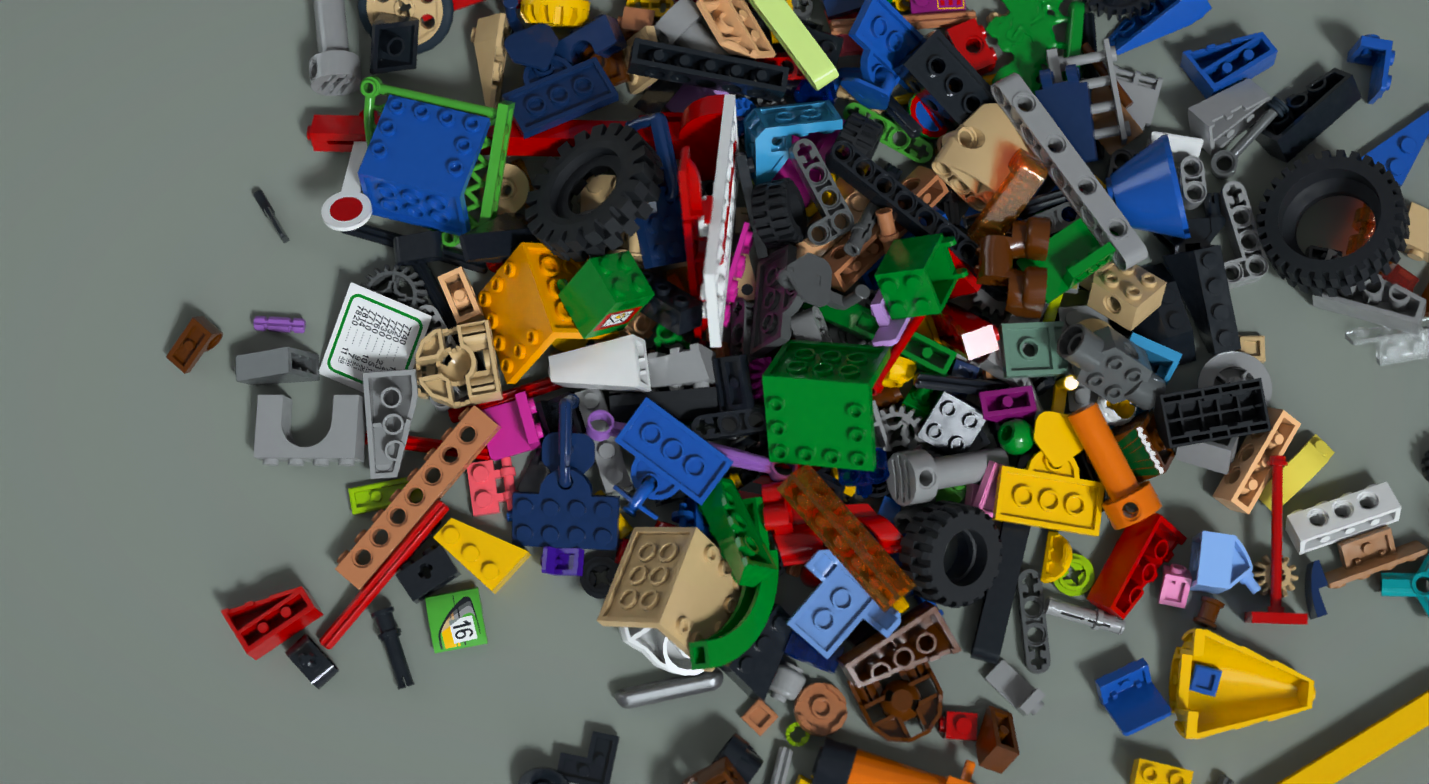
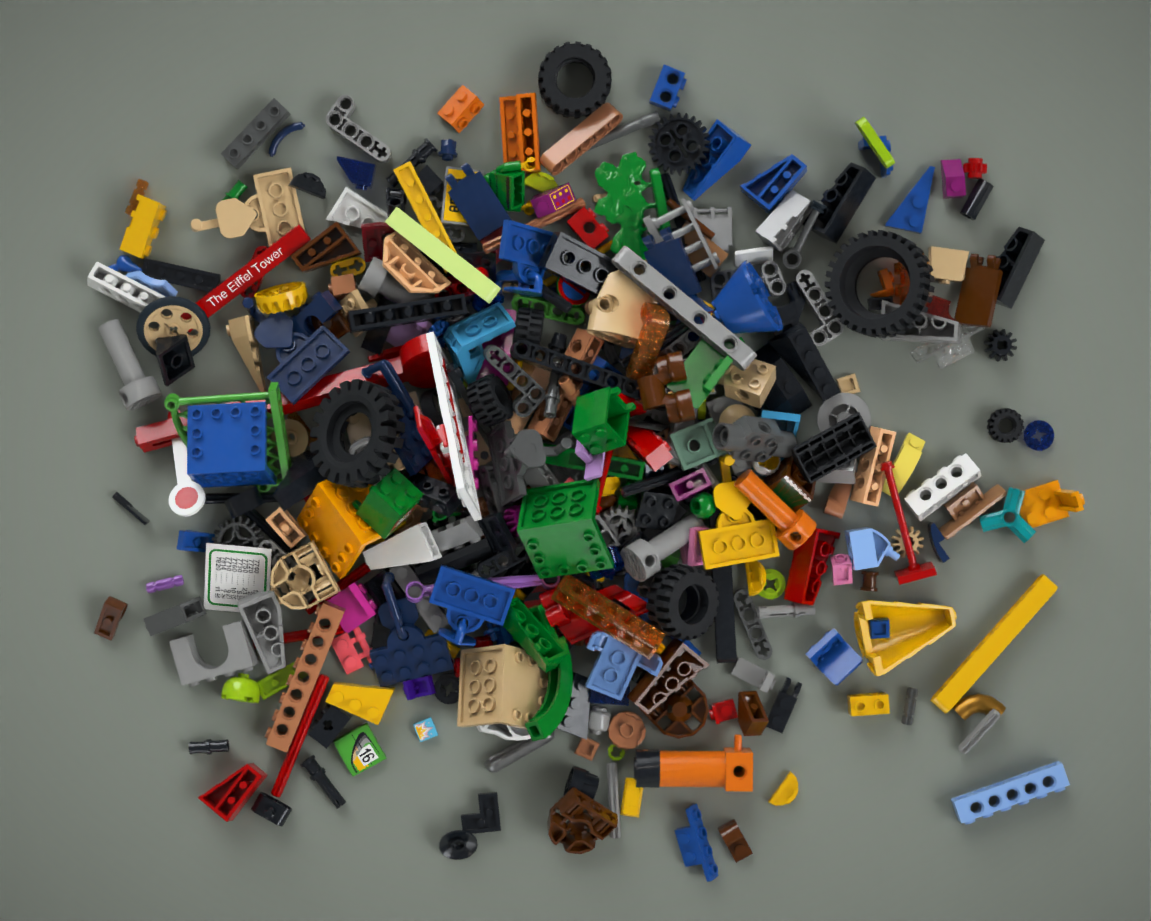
camera: 20 degrees left, 10 degrees up
(259, 552) = (209, 746): none -> black pin
(328, 488) = (241, 689): none -> lime cylinder
(334, 278) = (193, 540): none -> blue slope
(552, 622) = (425, 729): none -> tile
(1041, 747) = (783, 707): none -> black hinge
(1197, 491) = (838, 499): none -> nougat piece
(1339, 232) = (886, 279): none -> orange plate
(1377, 42) = (875, 142): none -> lime beam

